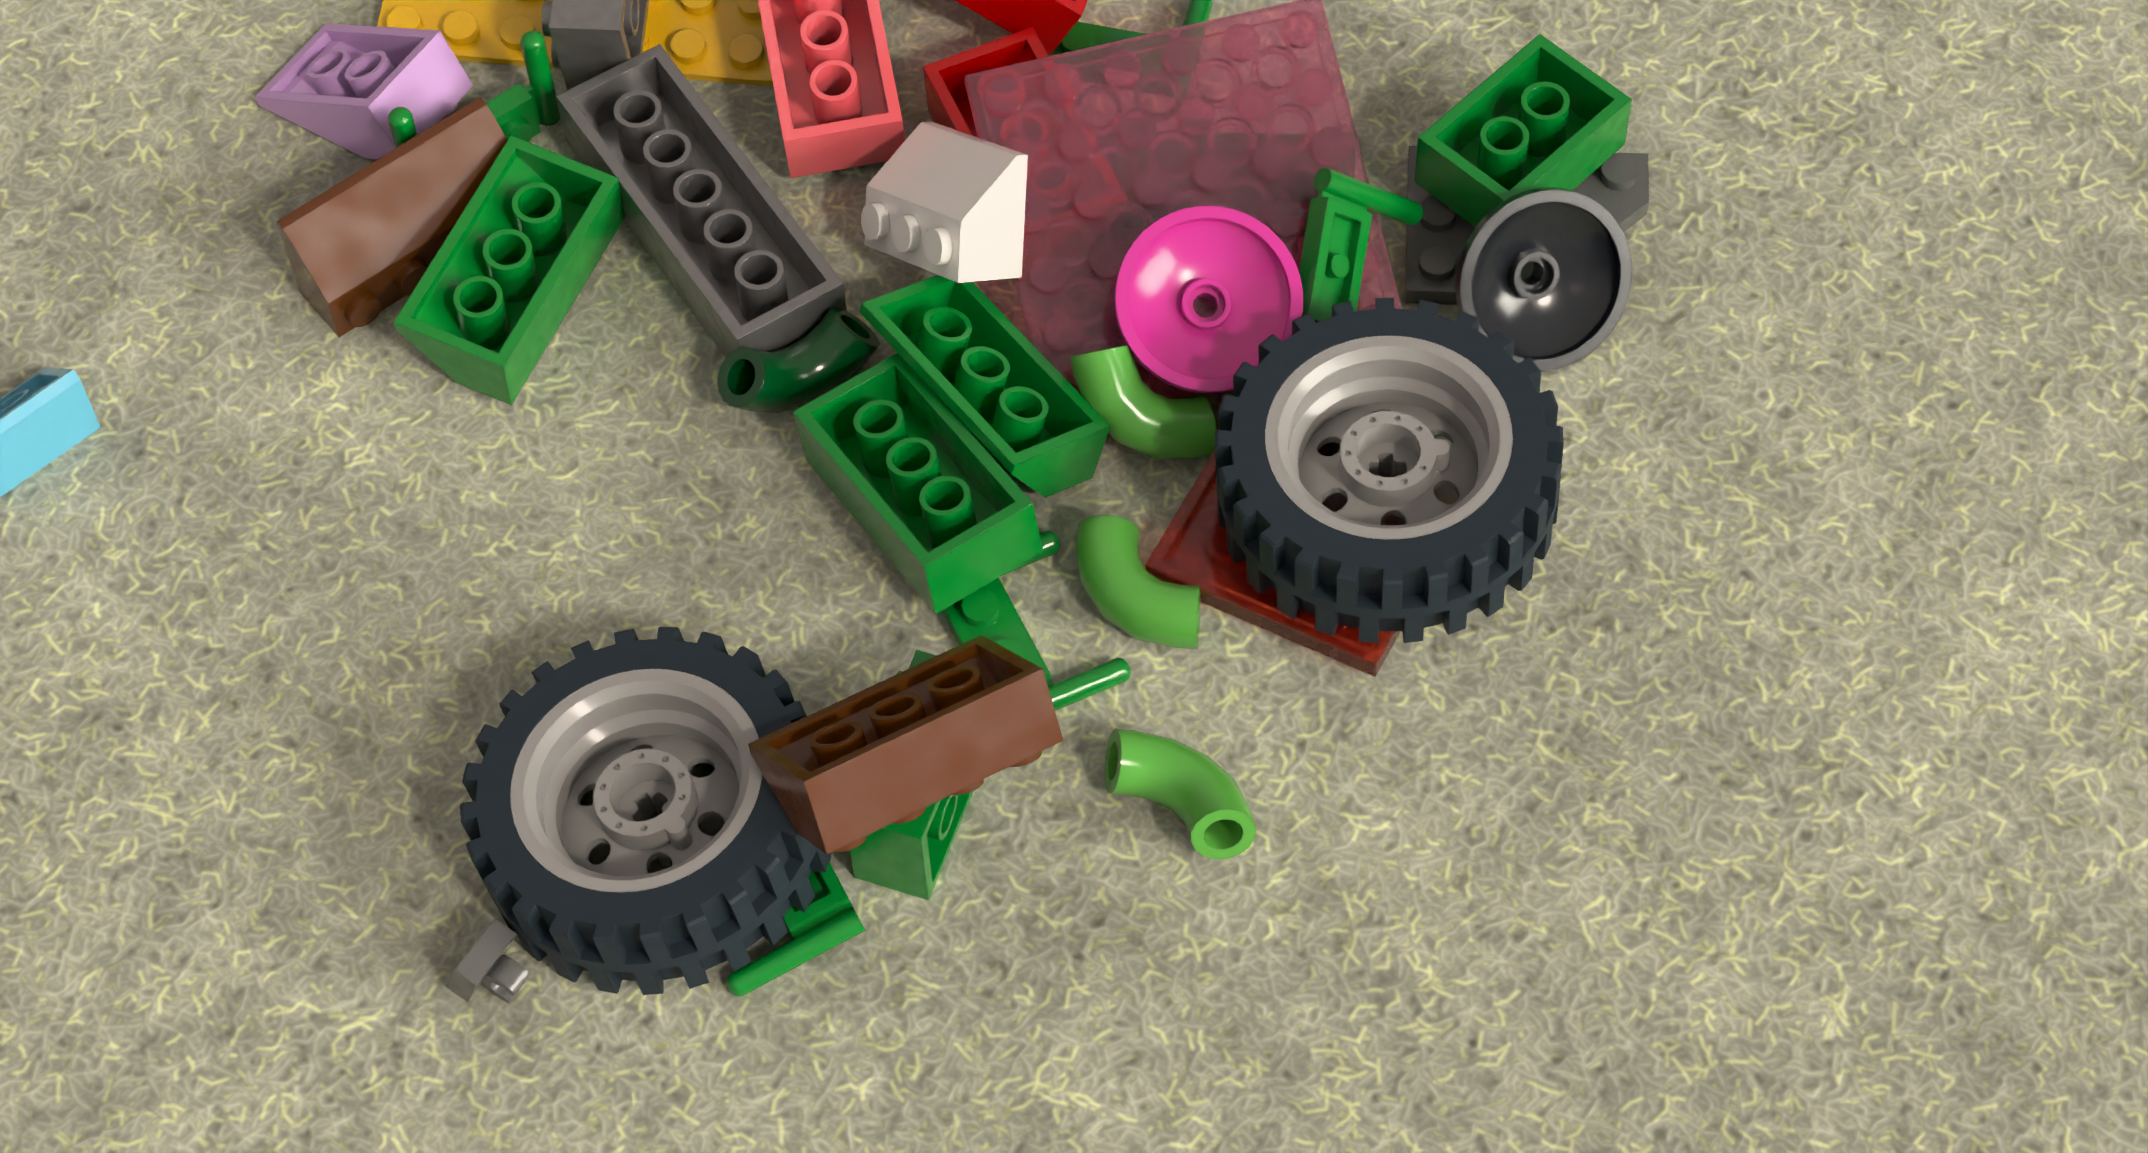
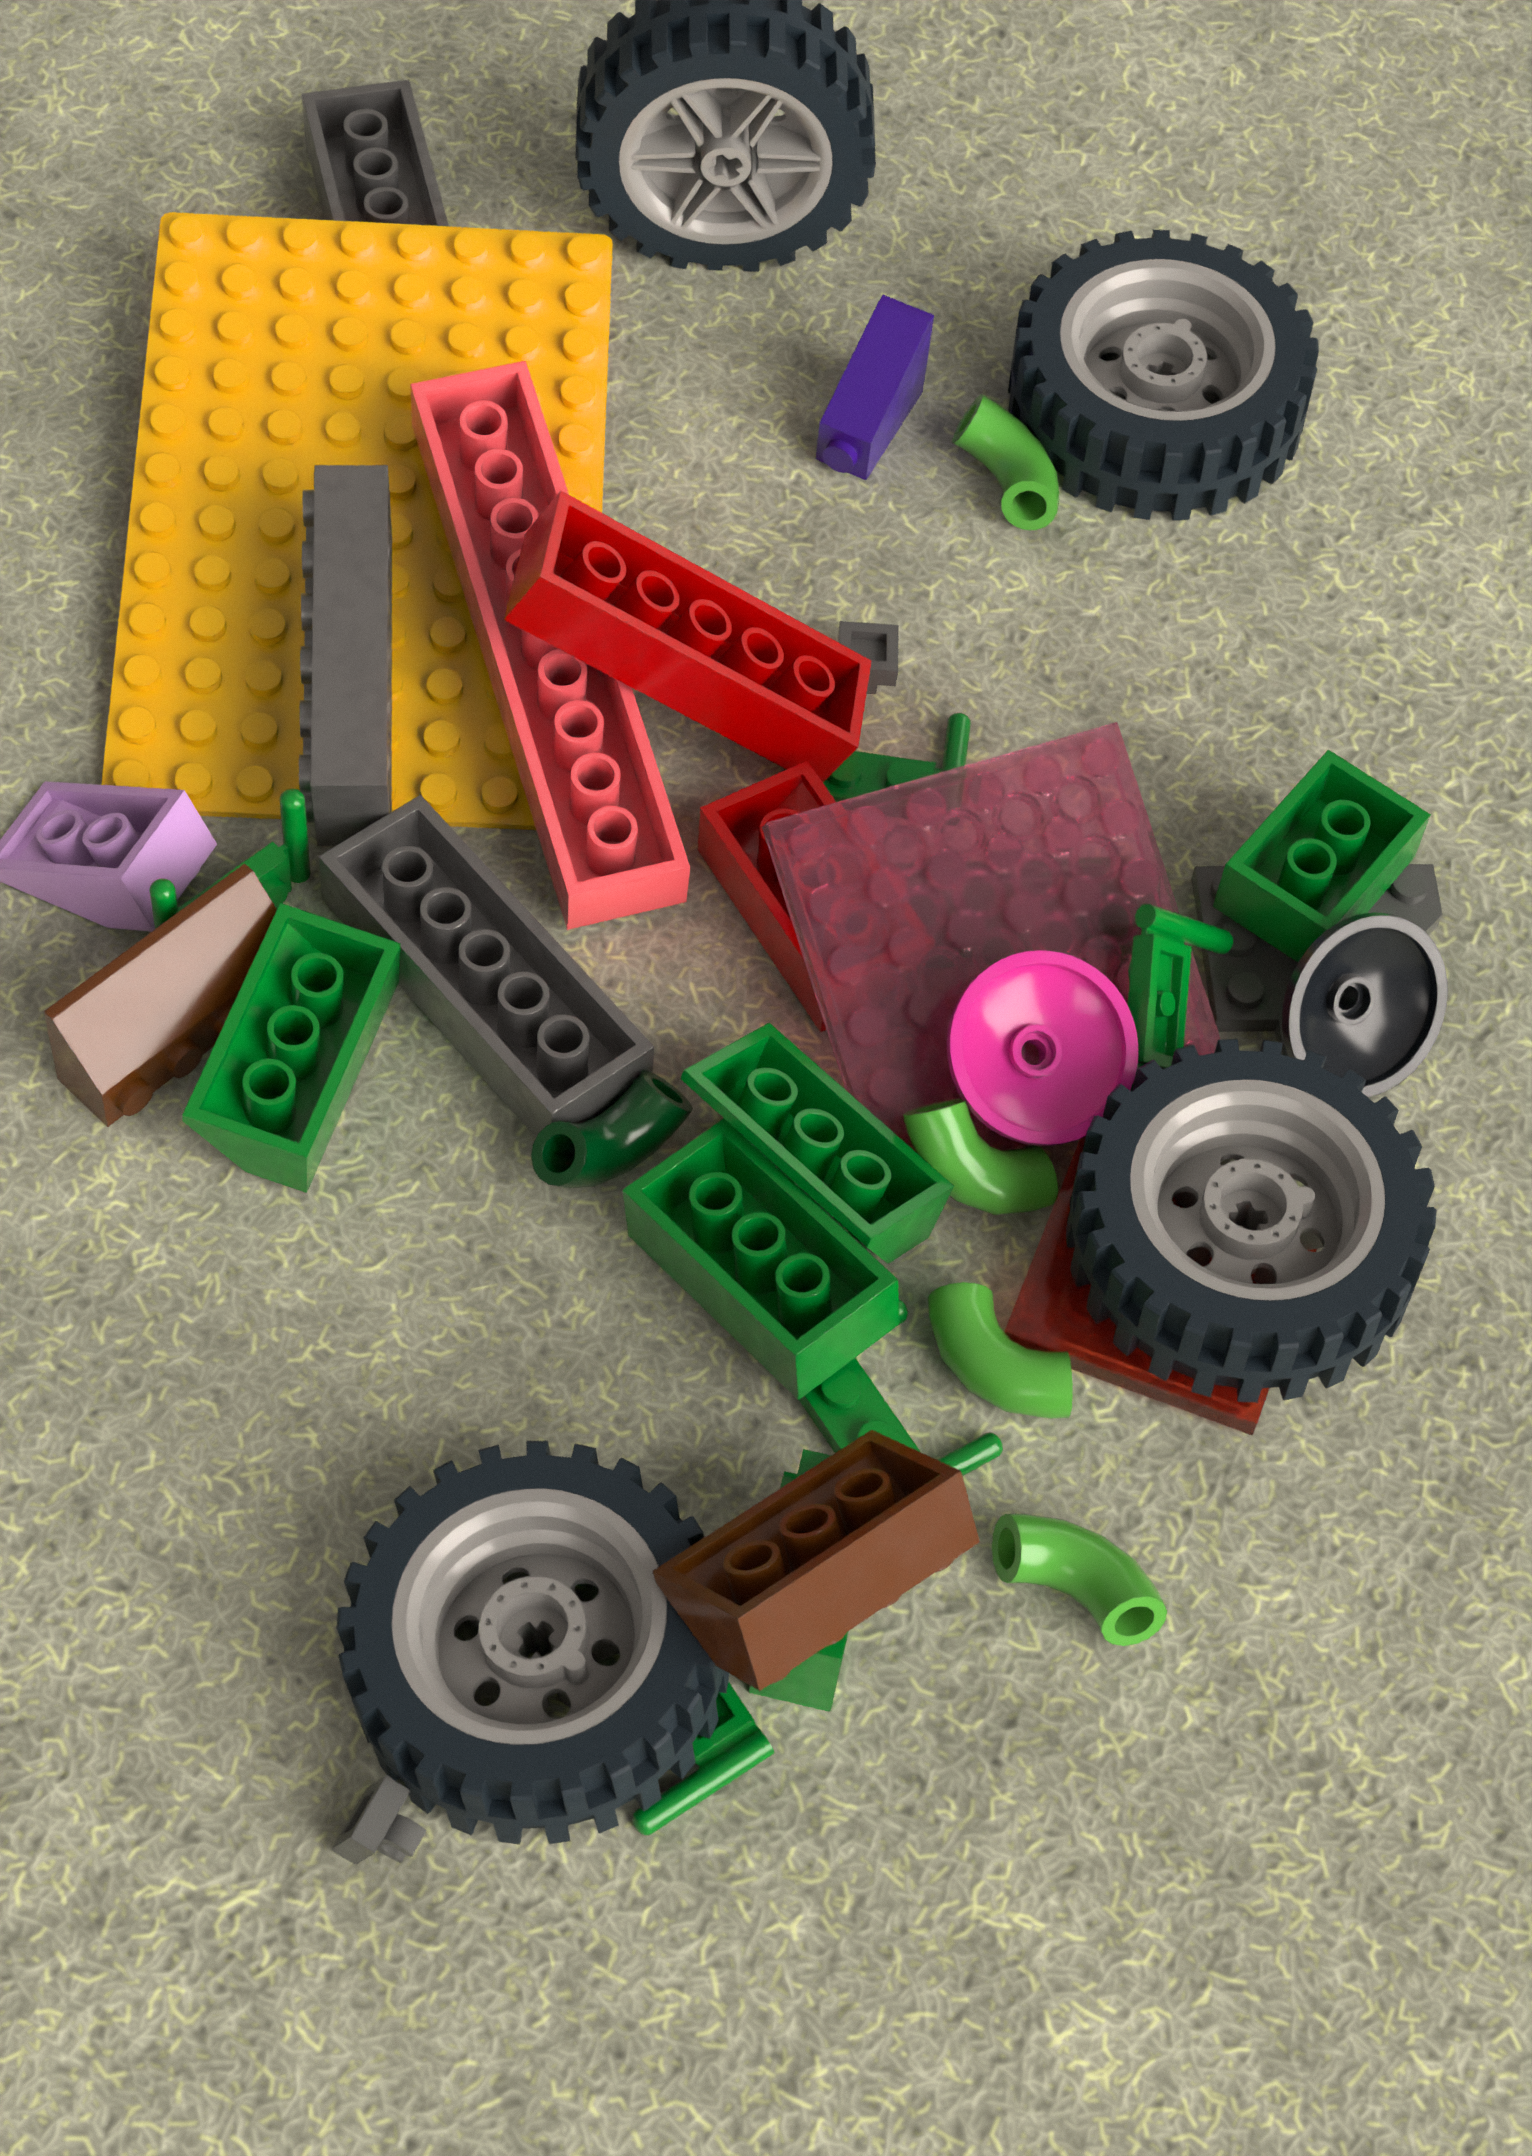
camera: 15 degrees left, 0 degrees up
(950, 205) = (756, 957): white slope -> none

